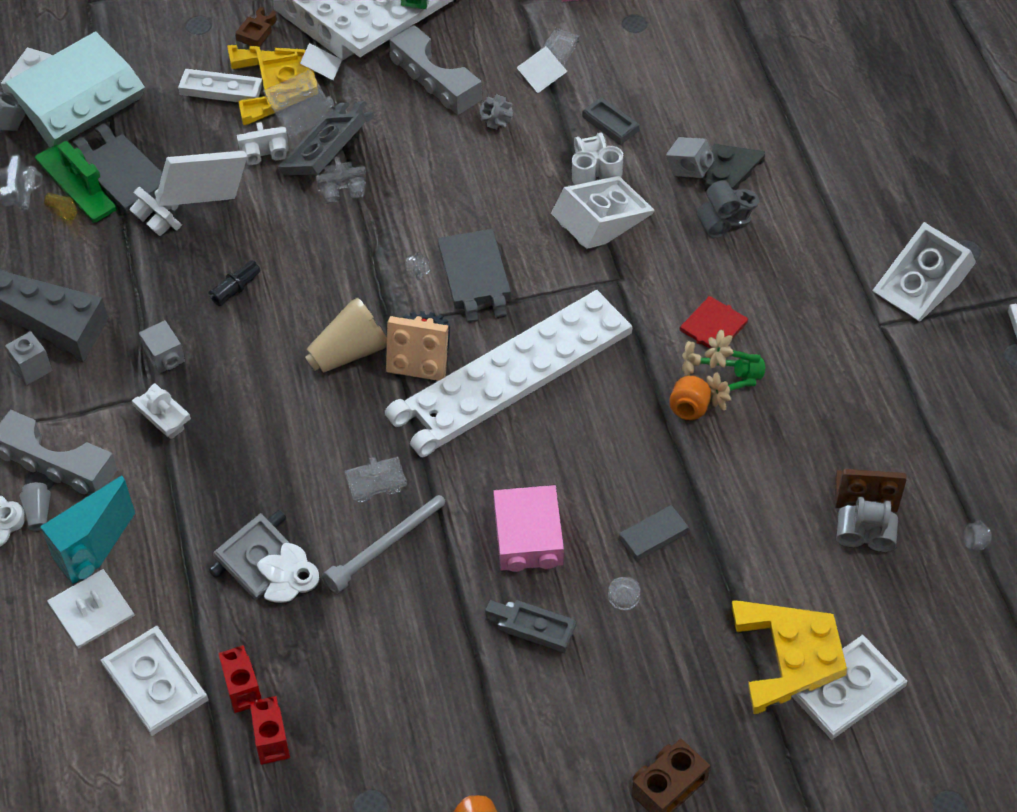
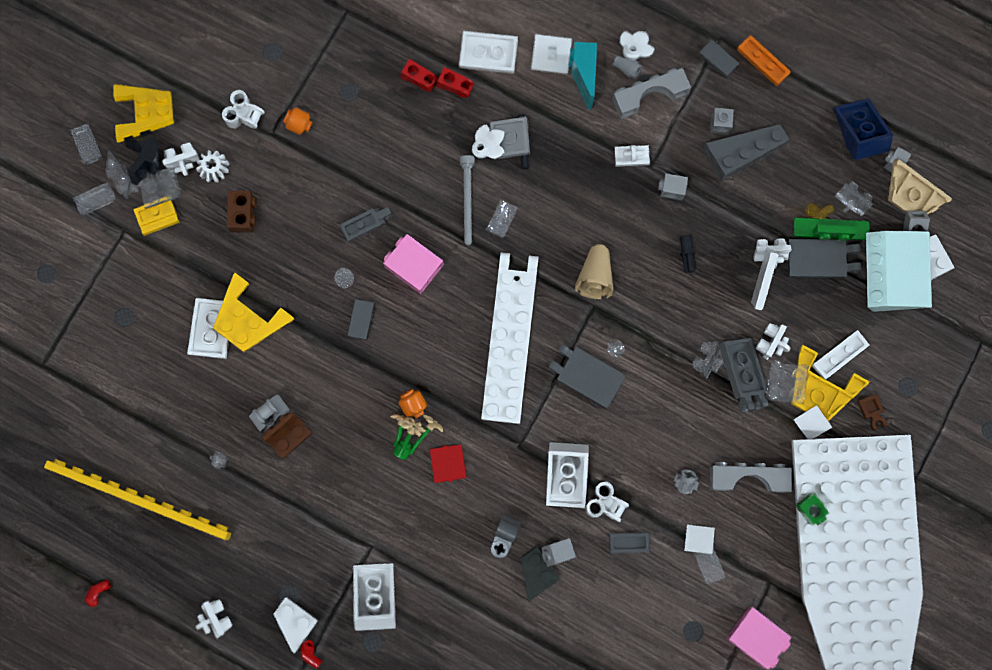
camera: 130 degrees right, 25 degrees up
(418, 345) = (563, 305): light nougat plate -> none

